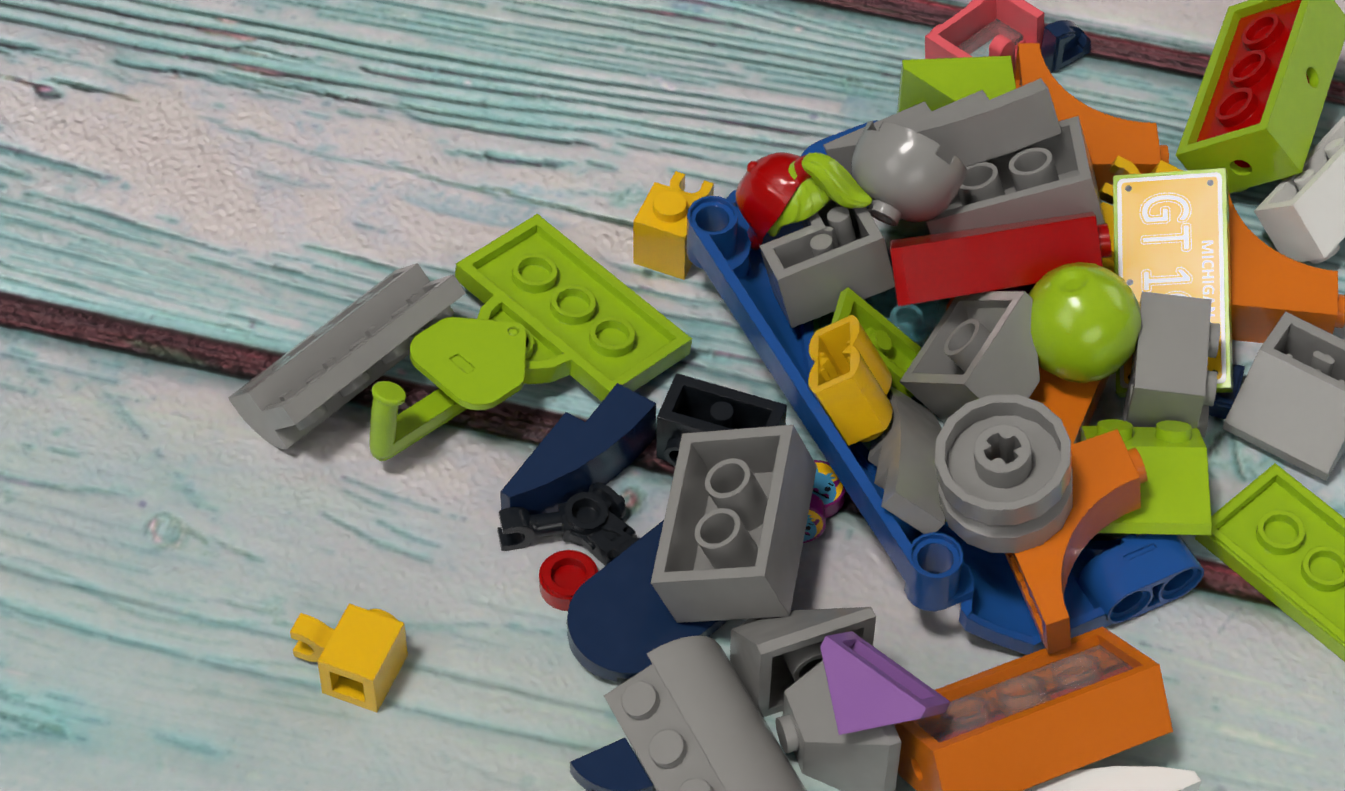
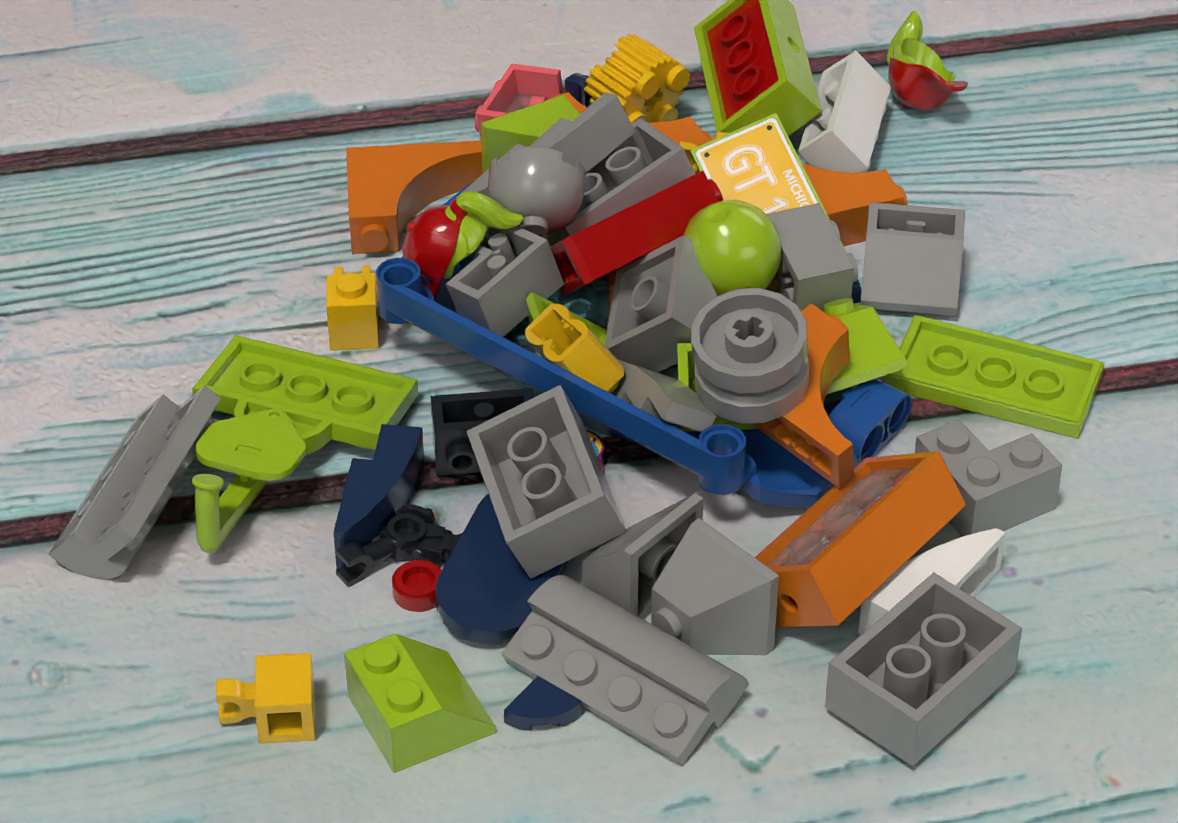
camera: 25 degrees left, 10 degrees down
(490, 713) = (413, 700): none -> lime slope
(797, 88) = (397, 182): none -> orange arch
(872, 688) = (737, 546): medium lavender slope -> none
(1119, 63) = (642, 78): none -> yellow brick
(1226, 715) = (997, 484): none -> light grey brick

